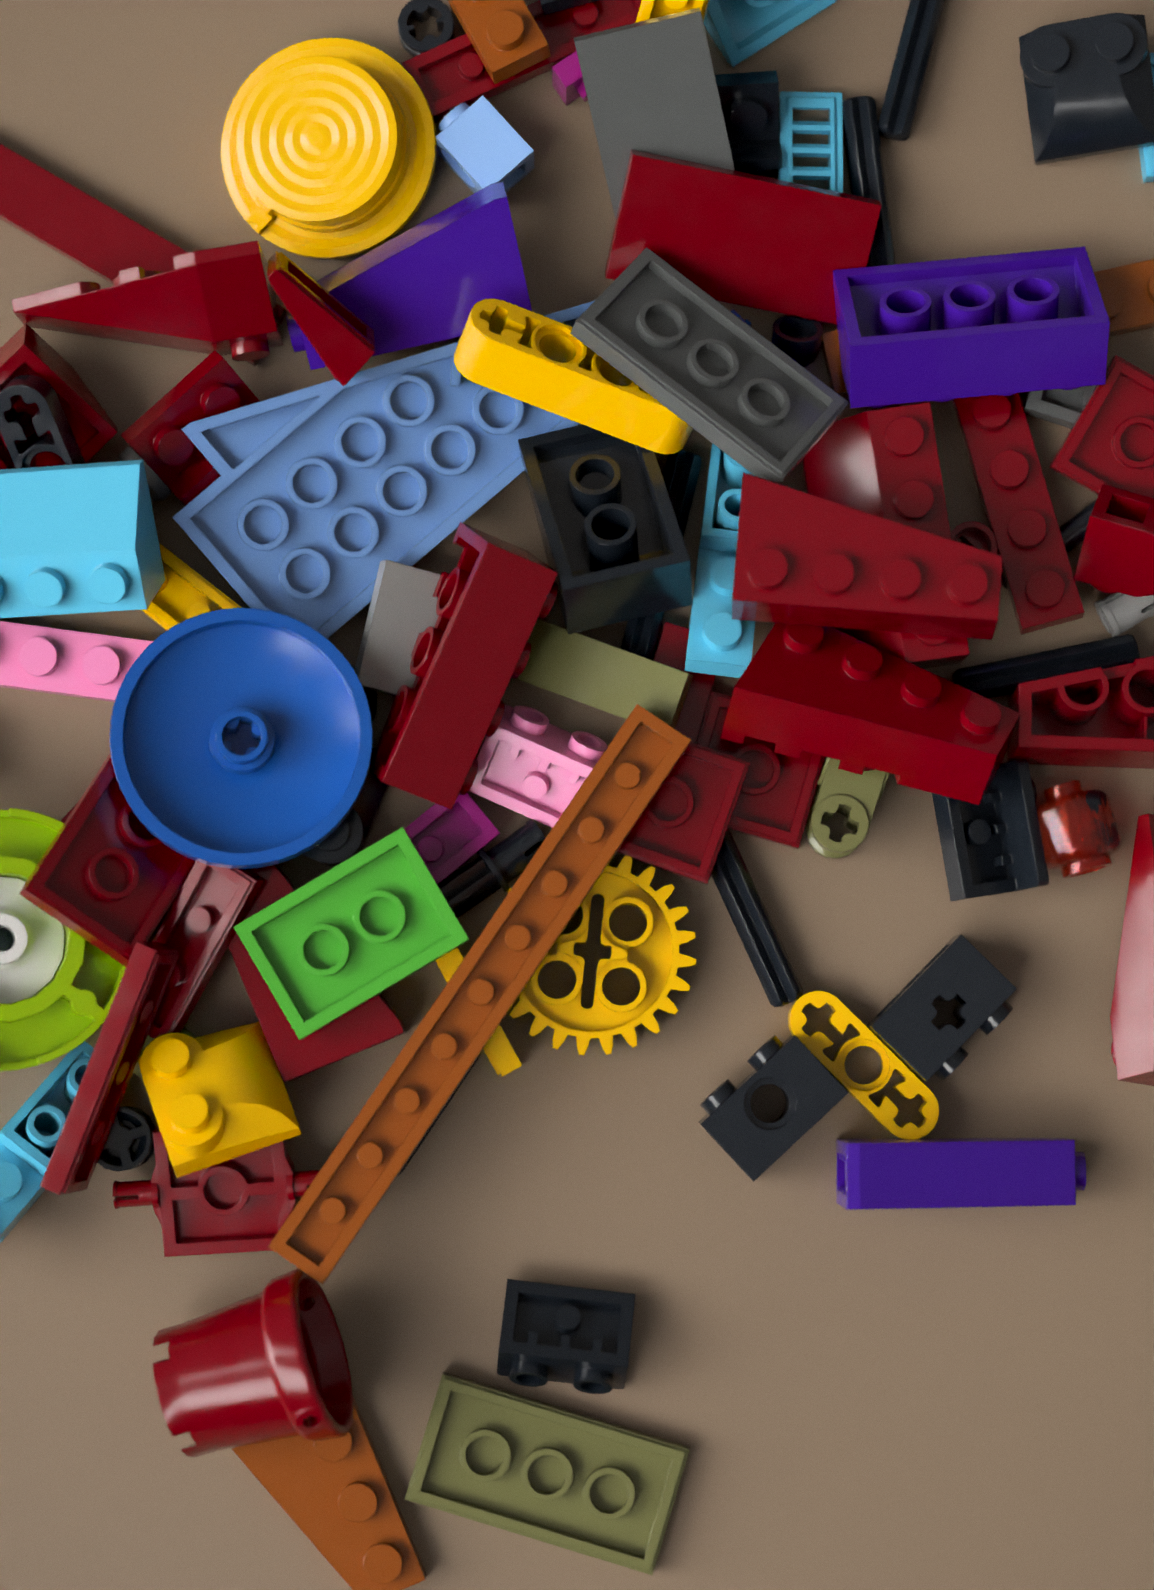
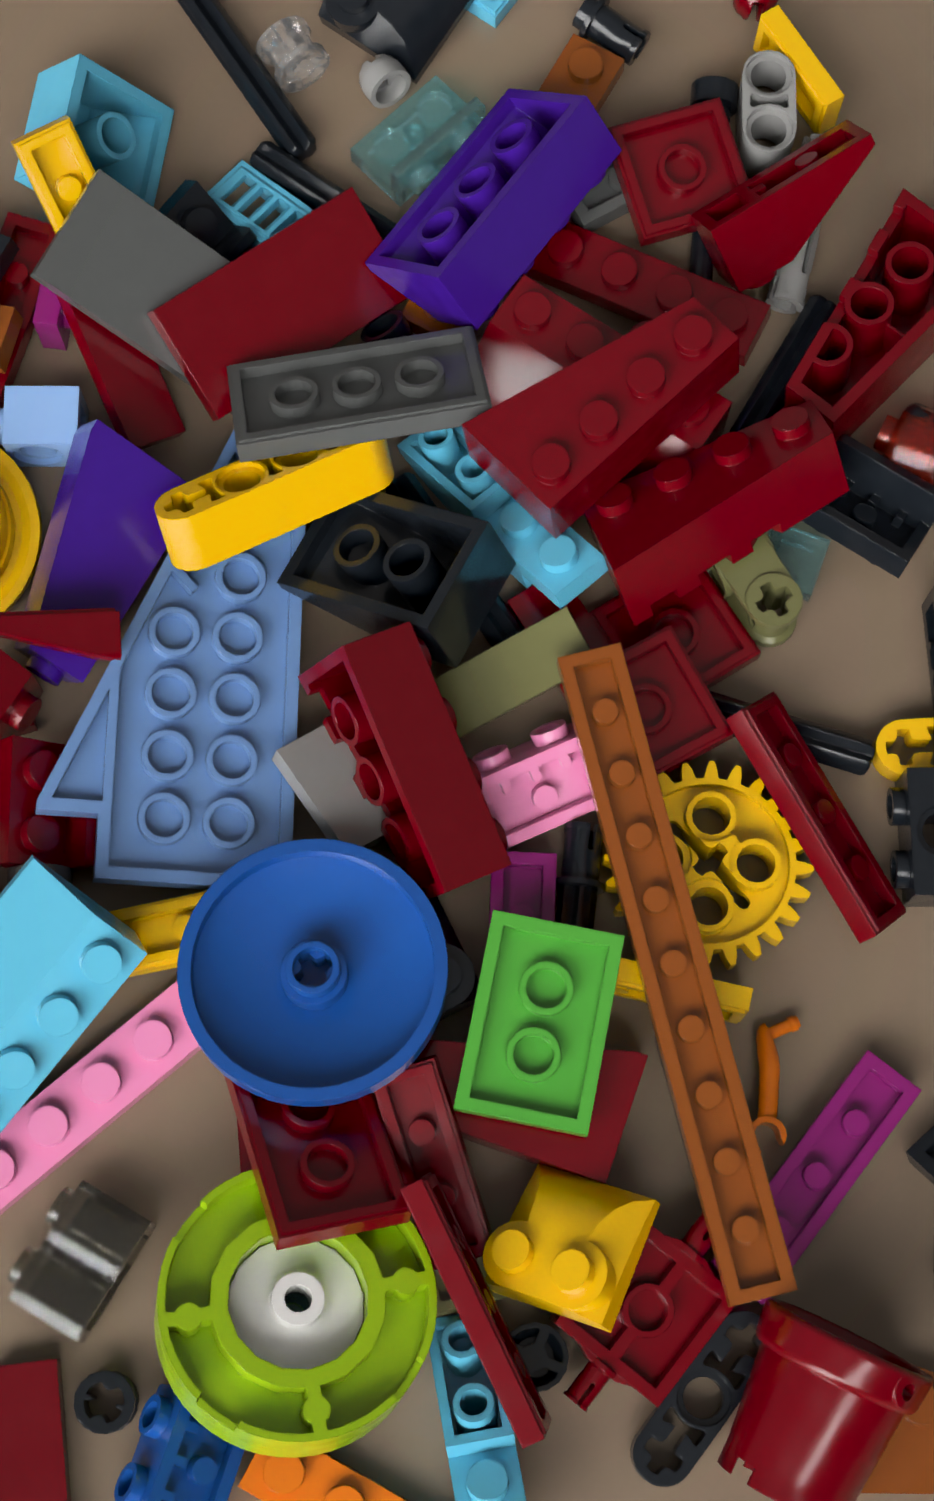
camera: 50 degrees left, 10 degrees down
(152, 1270) = (659, 1430): none -> black beam
(458, 1228) = (837, 1150): none -> magenta plate
(475, 1133) = (770, 1075): none -> orange piece
(571, 185) = (126, 383): none -> dark red tile
(699, 999) = (817, 817): none -> dark red tile
(900, 813) = (801, 555): none -> clear light blue tile
(964, 50) = (292, 54): none -> clear wheel
(984, 213) = (417, 140): none -> clear light blue bracket
(1009, 140) = (395, 80): none -> light grey hinge

